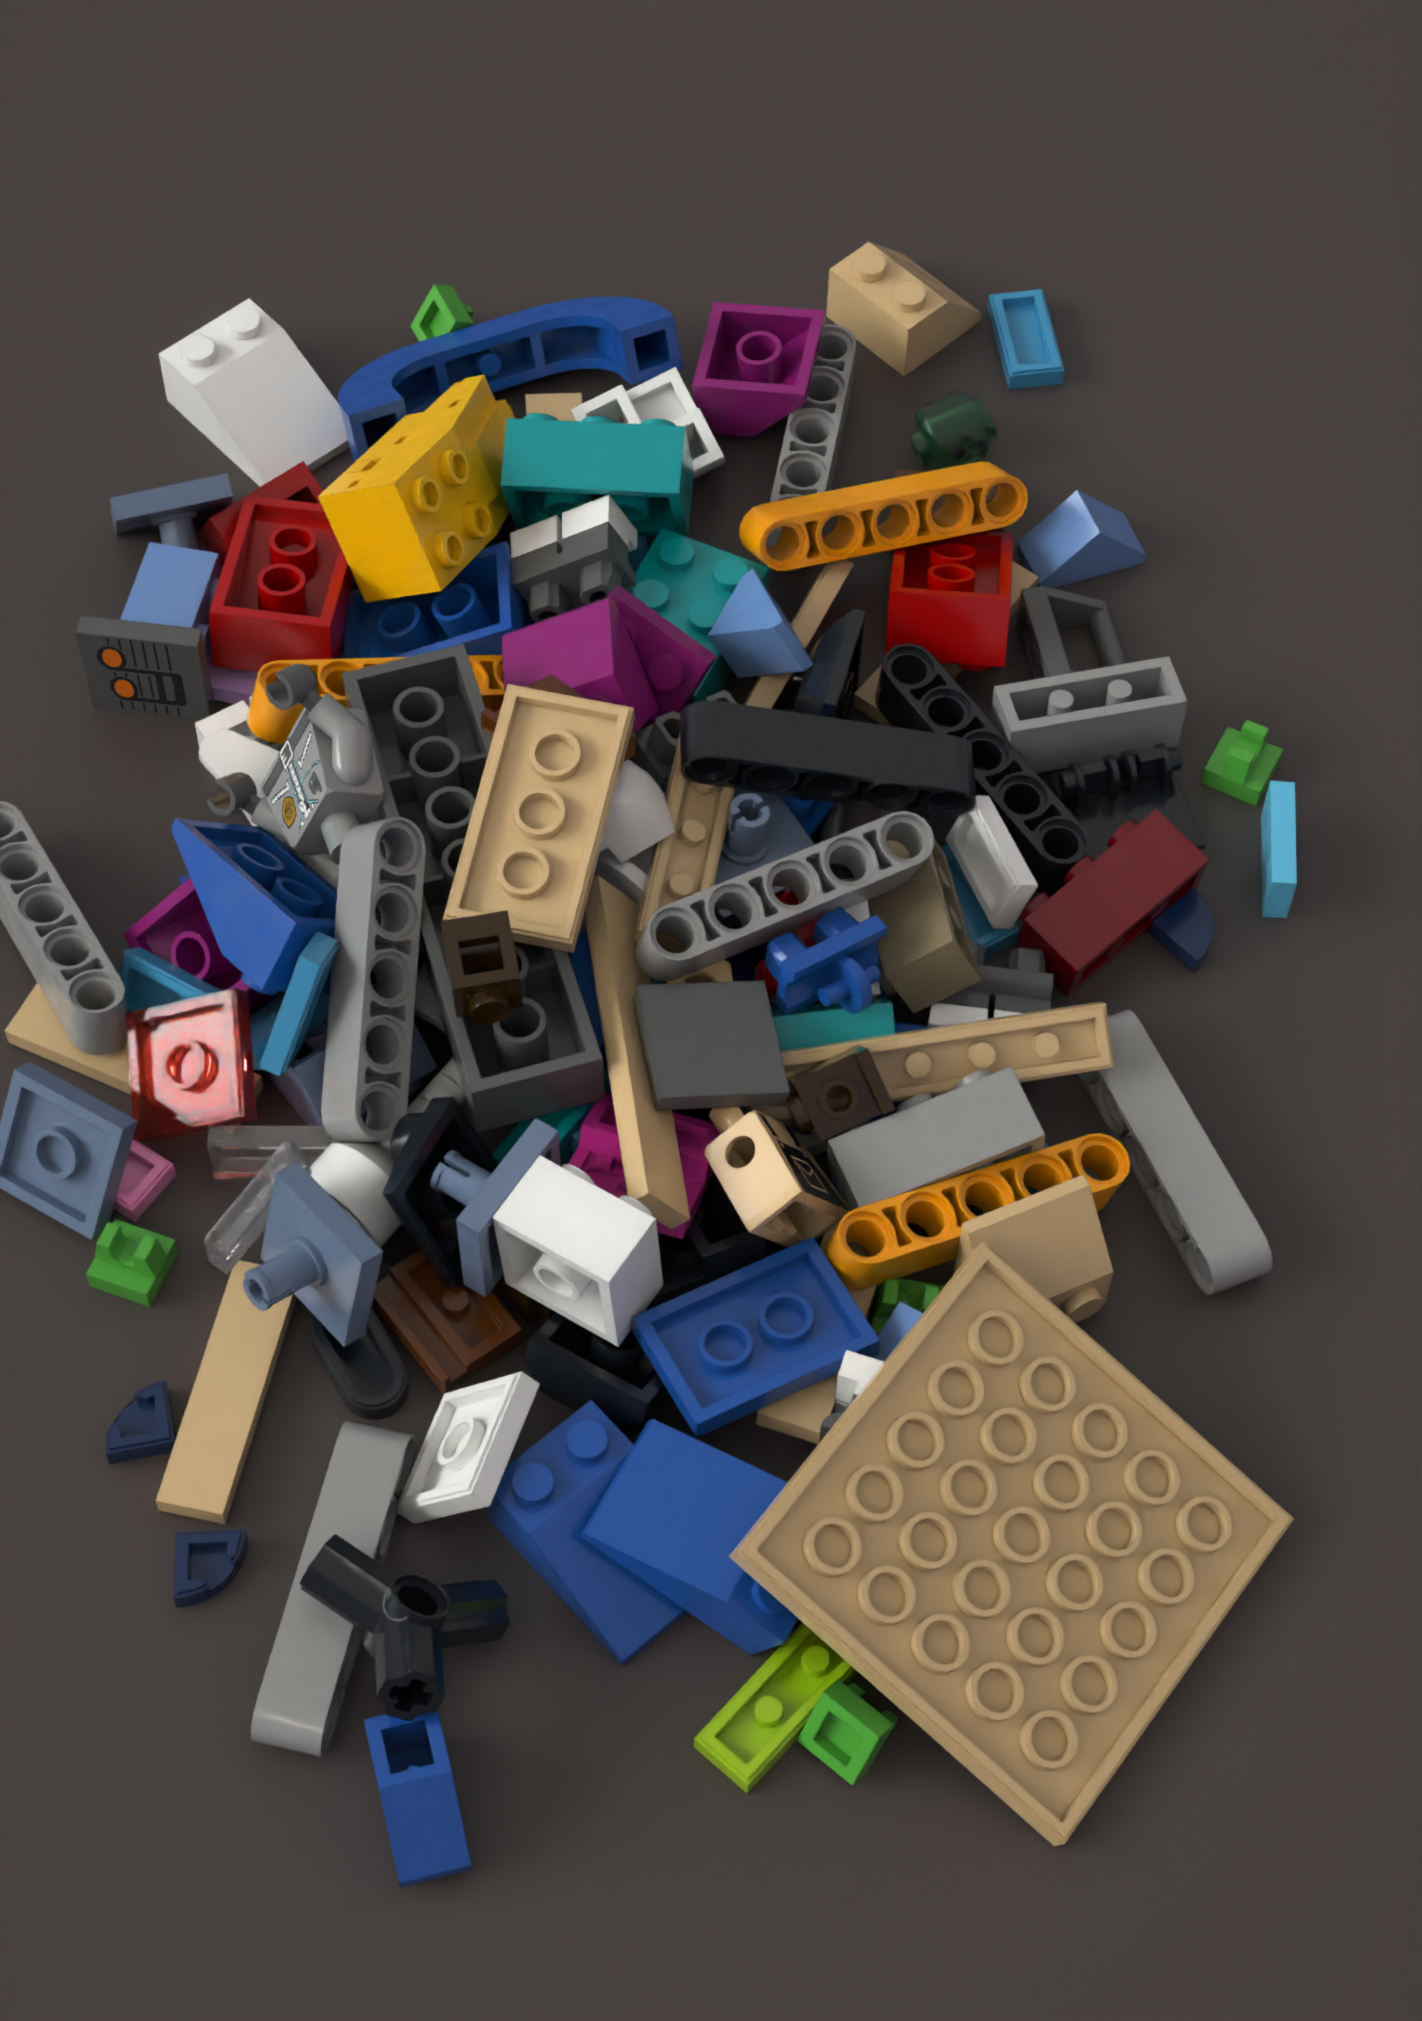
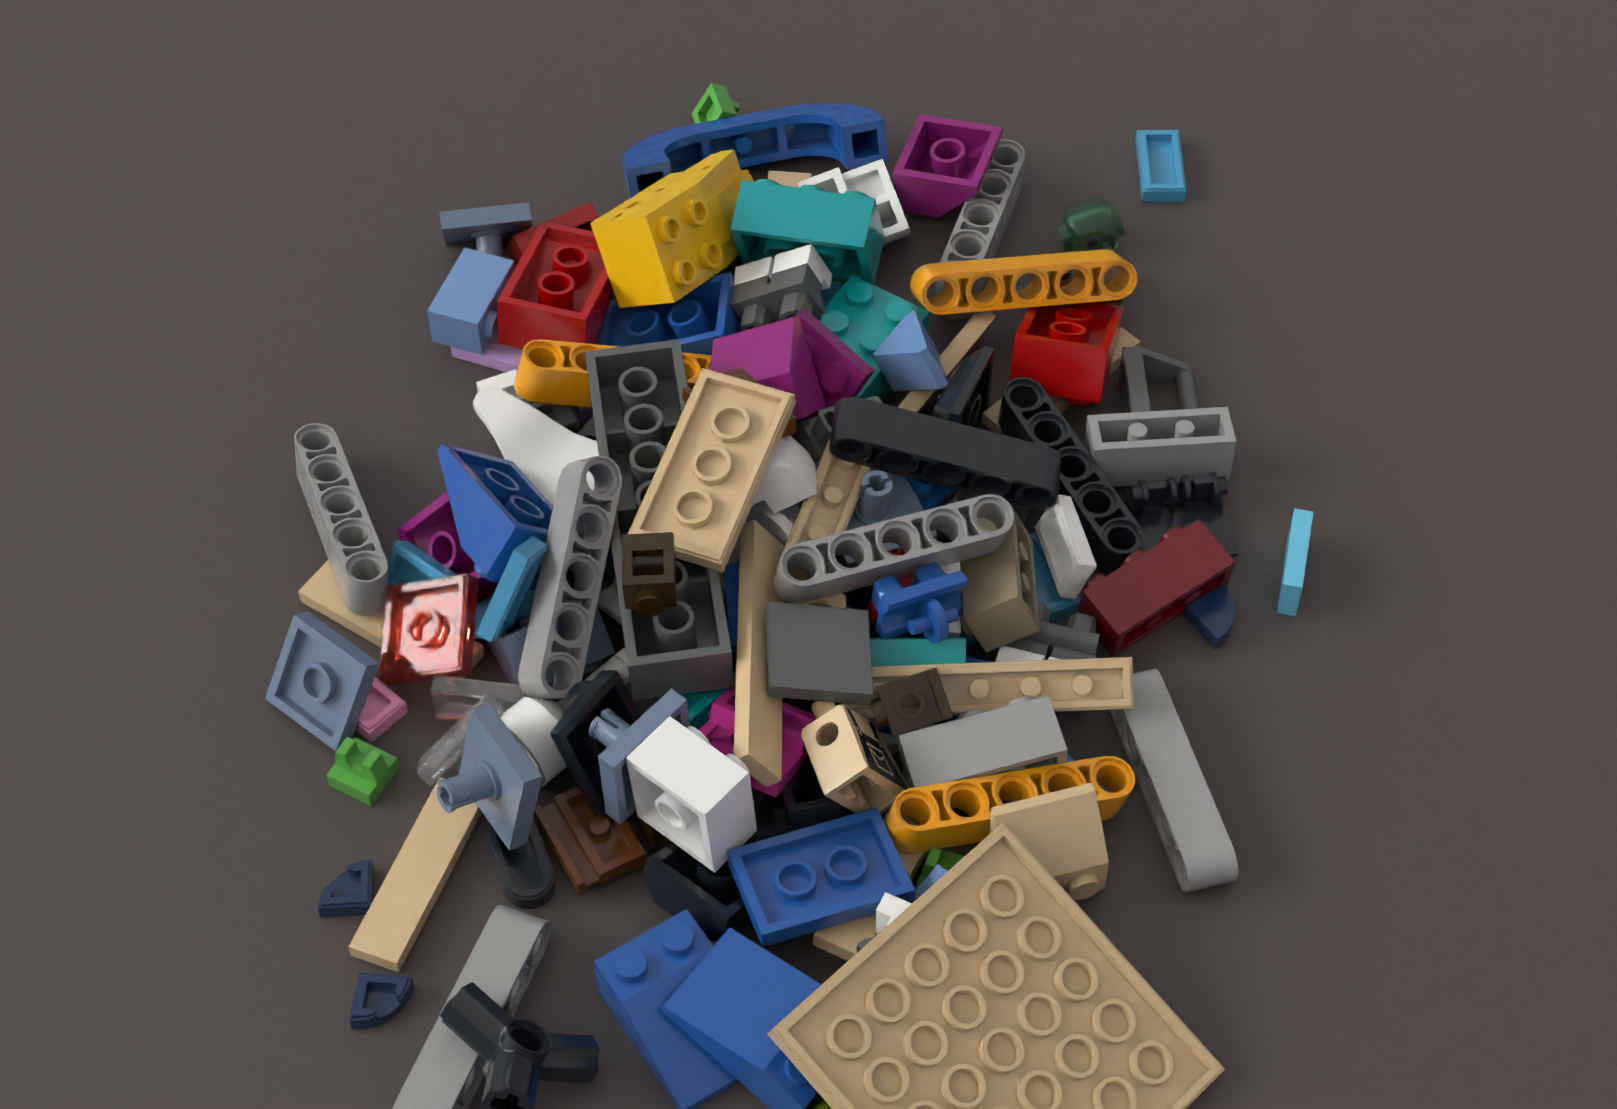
camera: 10 degrees right, 5 degrees down
(145, 667) = (446, 338): dark grey tile -> none
(253, 394) = (563, 150): white slope -> none
(321, 777) = (557, 424): light grey torso -> none
(467, 1448) = (587, 934): white tile -> none
(896, 307) = (1063, 132): tan slope -> none
(1079, 542) = (1177, 319): medium blue slope -> none
(1243, 763) = (1278, 495): bright green tile -> none

